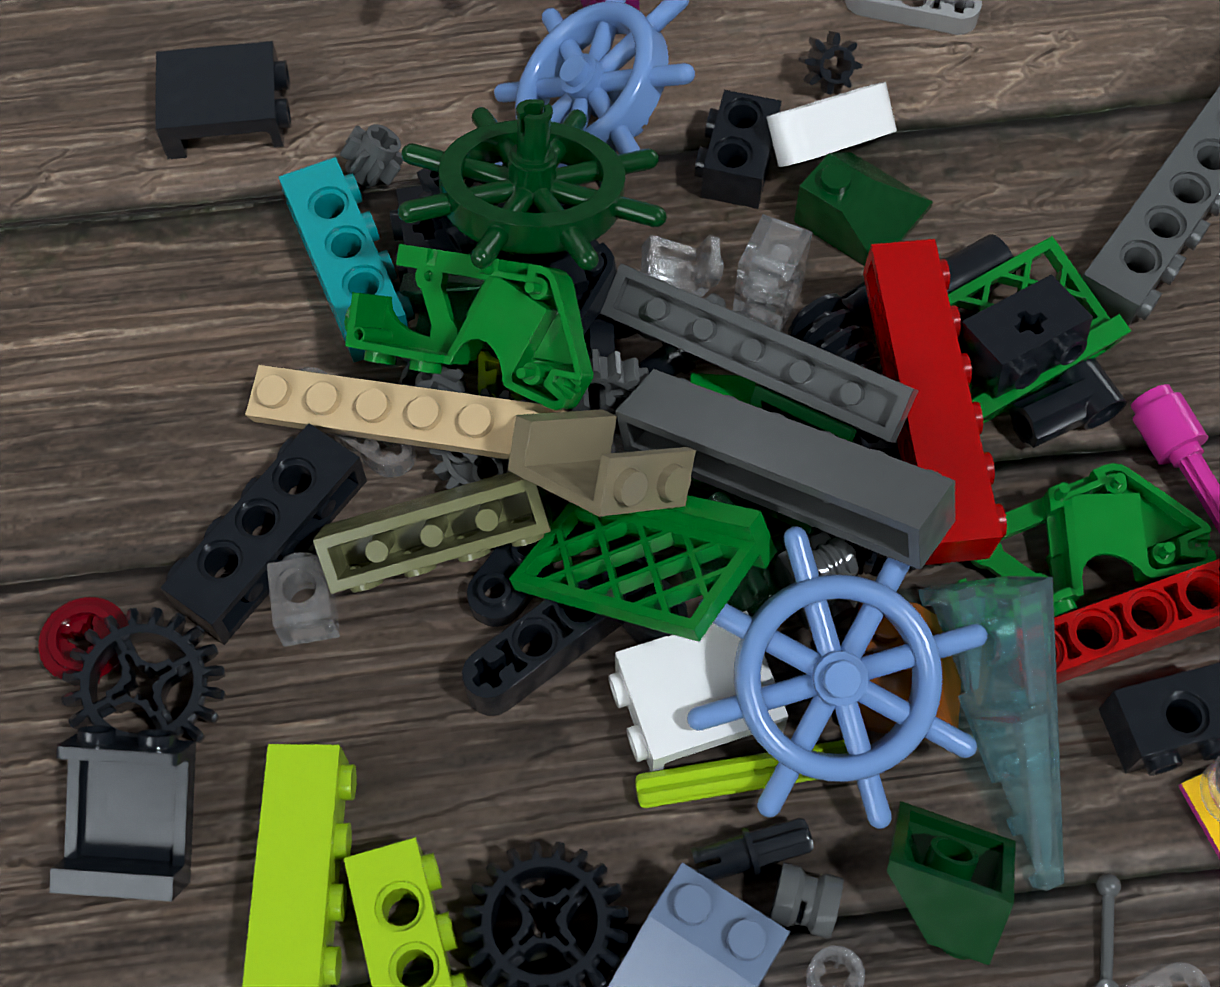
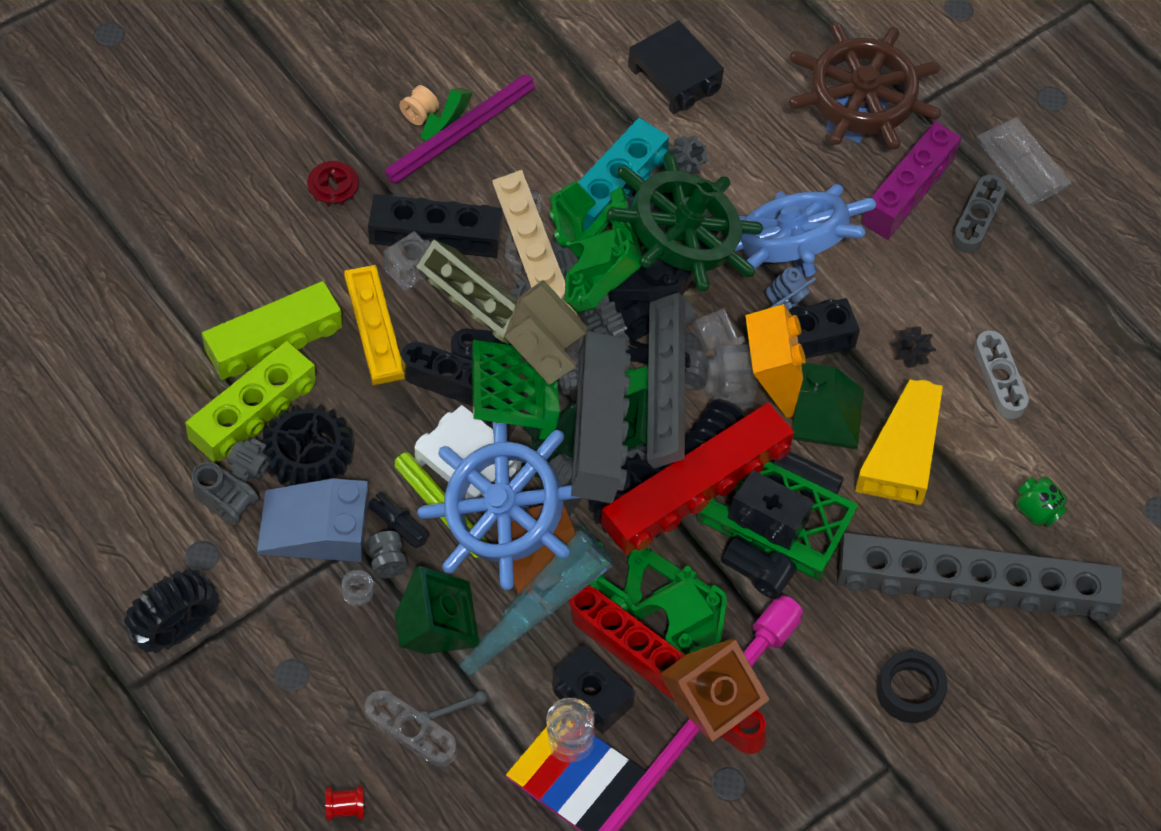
camera: 55 degrees right, 5 degrees down
(40, 447) = (419, 105): none -> light nougat wheel
(87, 435) = (454, 108): none -> green slope
(119, 420) = (459, 129): none -> magenta axle
(127, 814) = (256, 244): panel -> none
(169, 672) = (331, 194): black gear -> none
(375, 710) = (374, 324): none -> yellow tile
(684, 162) = (788, 289): none -> sand blue hinge
(799, 190) = (777, 355): none -> light orange slope
(831, 124) = (862, 363): white beam -> none
(970, 146) = (904, 450): none -> yellow slope
(1126, 49) = (1041, 501): none -> green head

